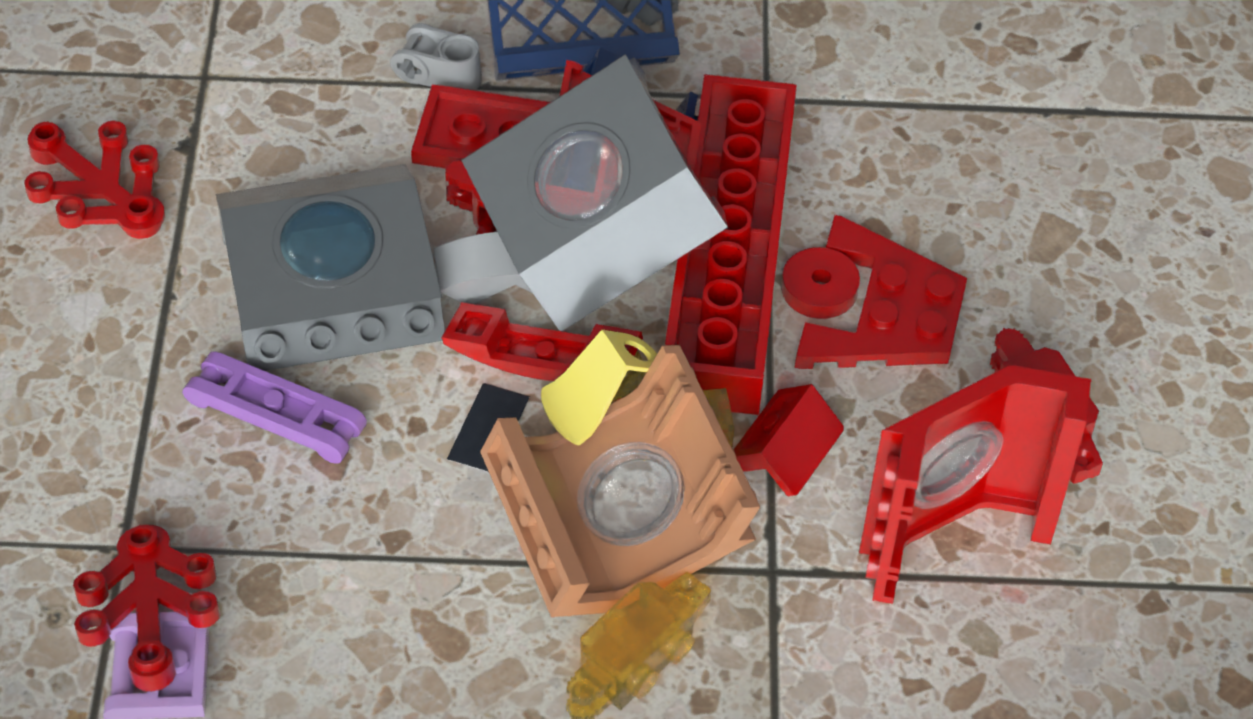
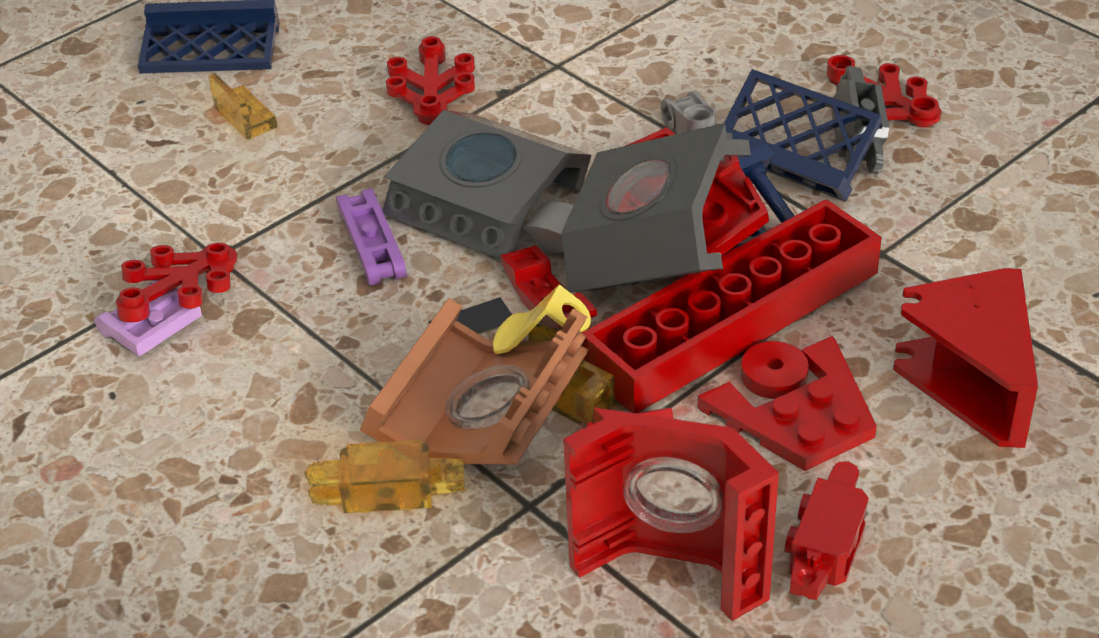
camera: 50 degrees right, 10 degrees down
(990, 152) = (977, 352): none -> red ladder

